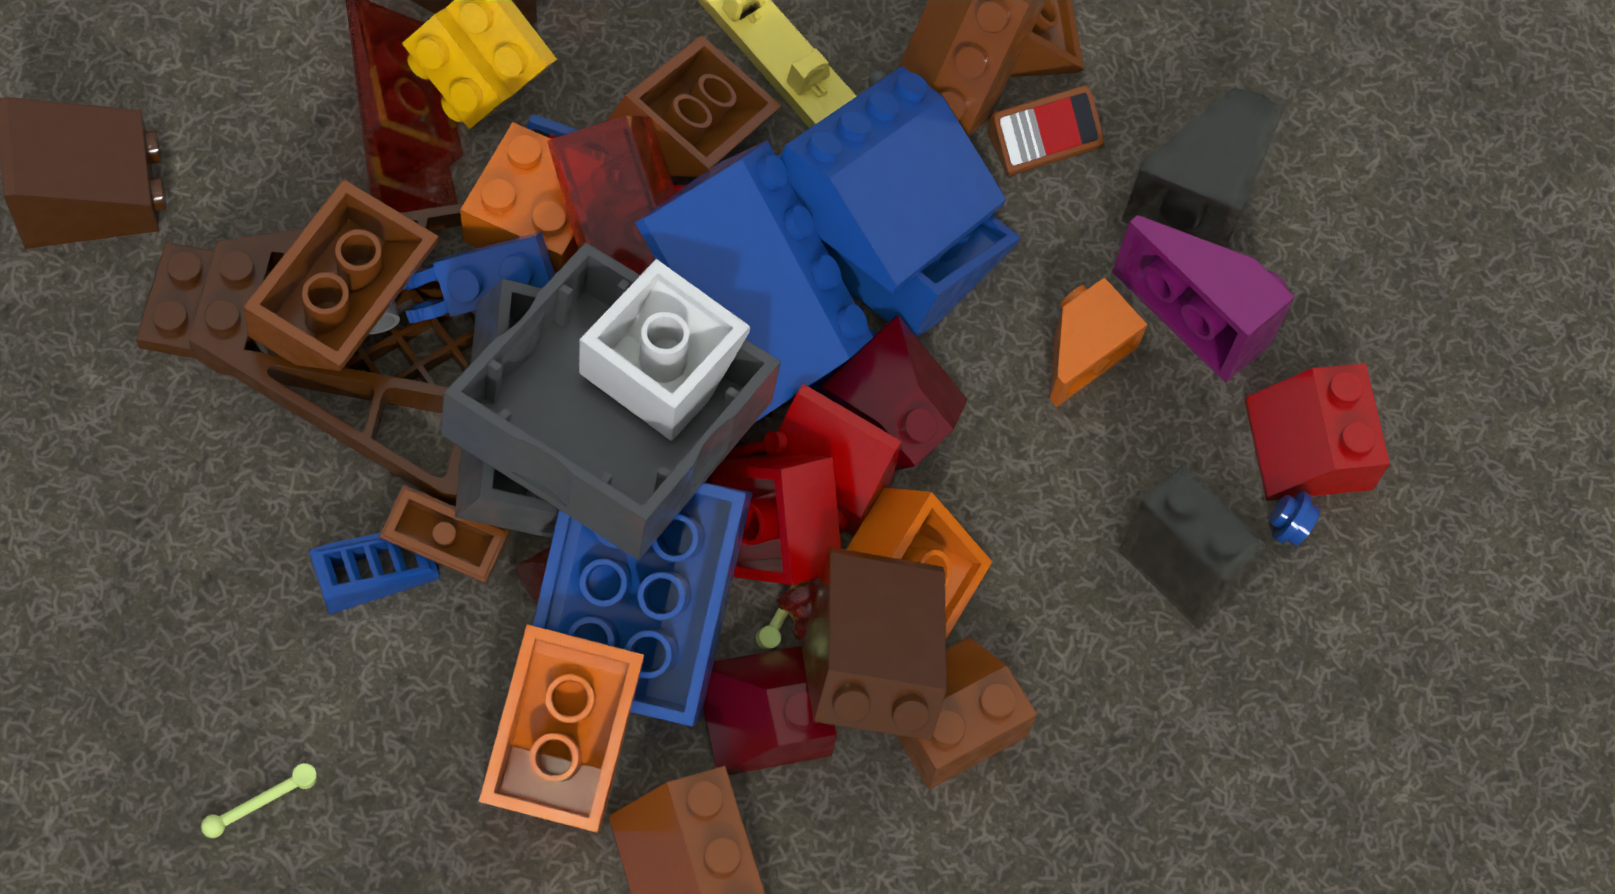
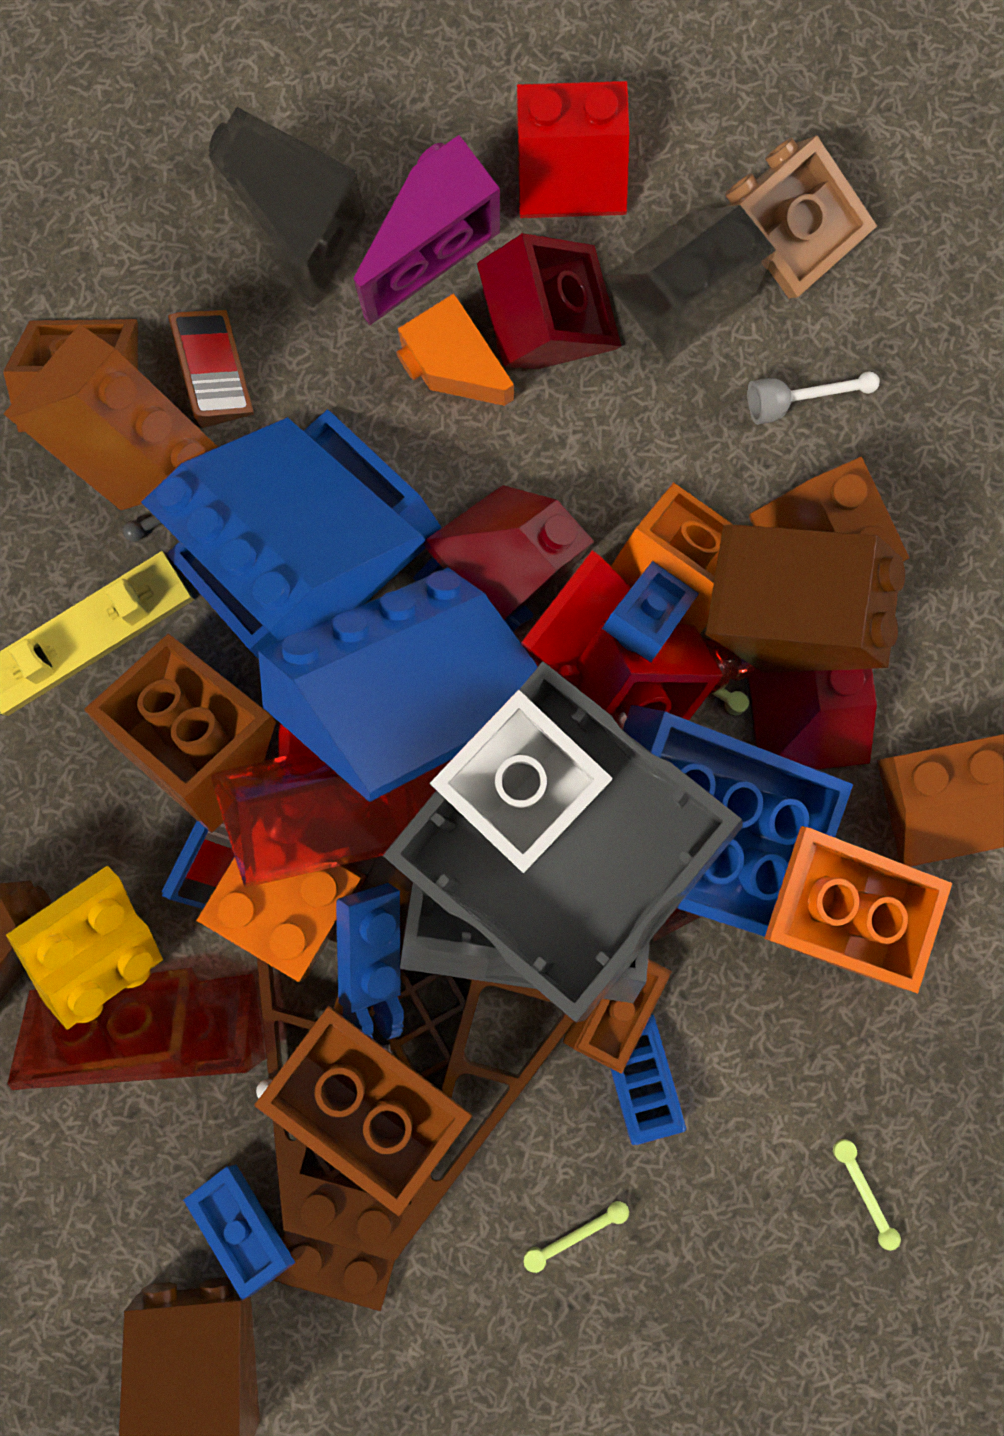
camera: 75 degrees left, 20 degrees up
(187, 483) = (536, 1258): none -> yellowish green hinge
(213, 208) = (239, 1231): none -> blue plate
(847, 500) = (650, 611): none -> blue plate
(1091, 647) = (771, 397): none -> hinge
(1155, 420) = (547, 302): none -> dark red slope
(1288, 654) = (803, 212): none -> medium nougat plate
(1294, 518) = (657, 188): blue plate -> none

